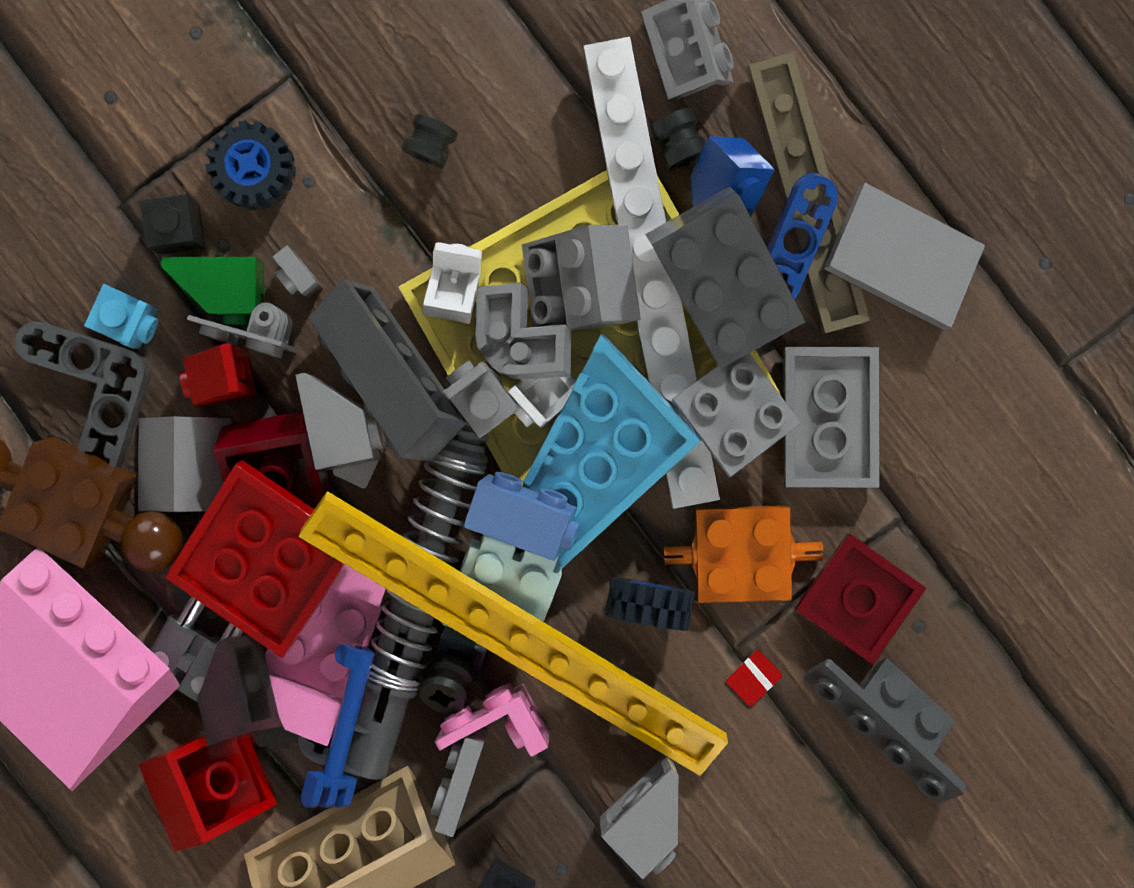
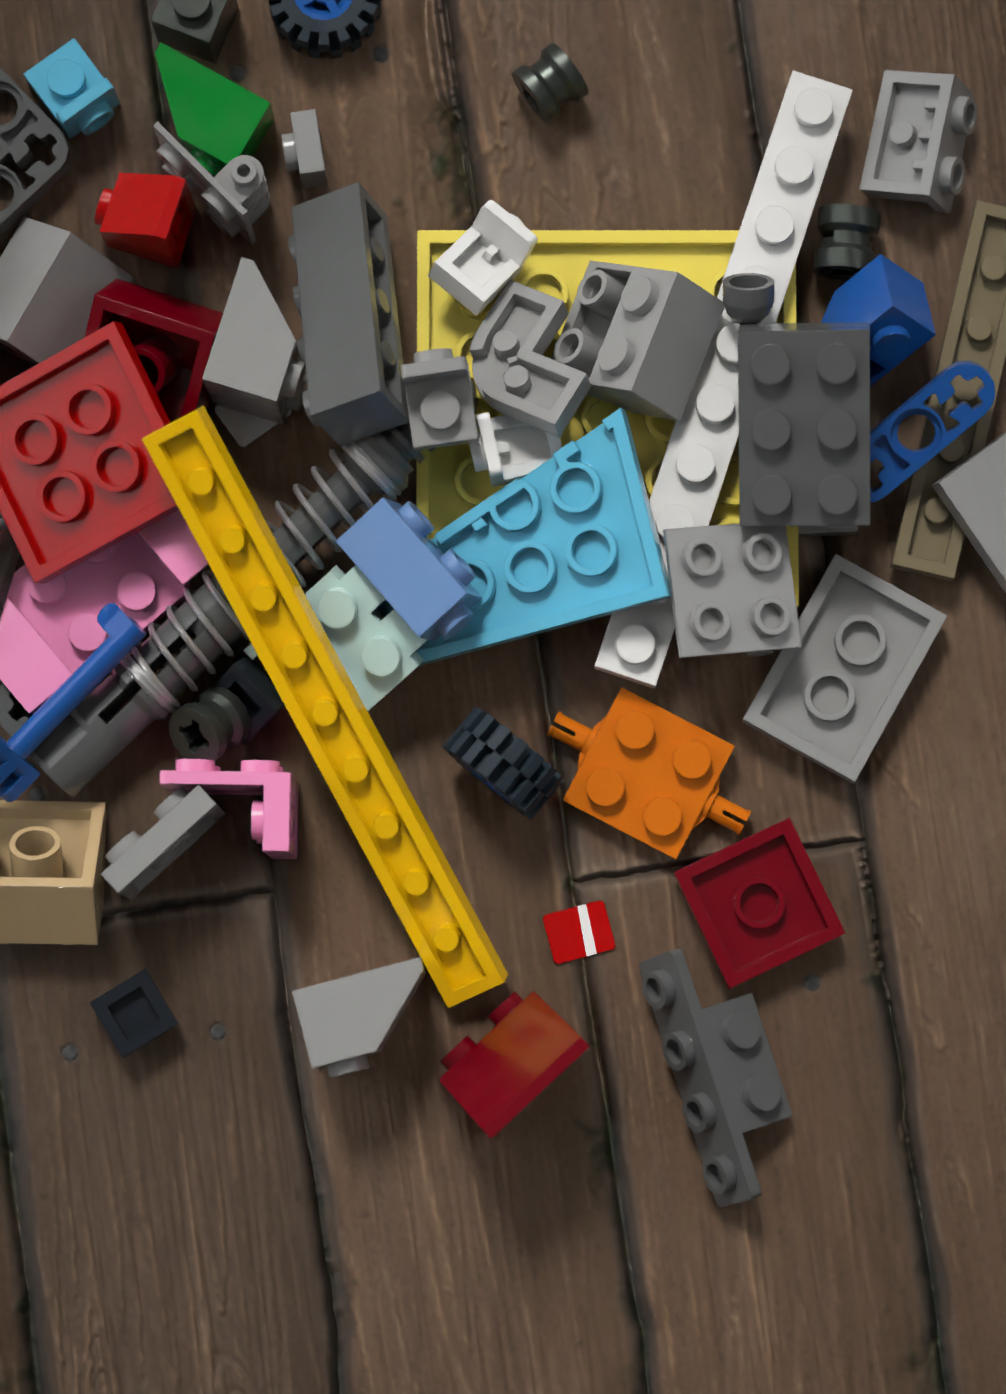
camera: 30 degrees right, 5 degrees down
(641, 213) = (748, 297): none -> dark grey hinge
(767, 798) = (511, 1062): none -> dark red slope

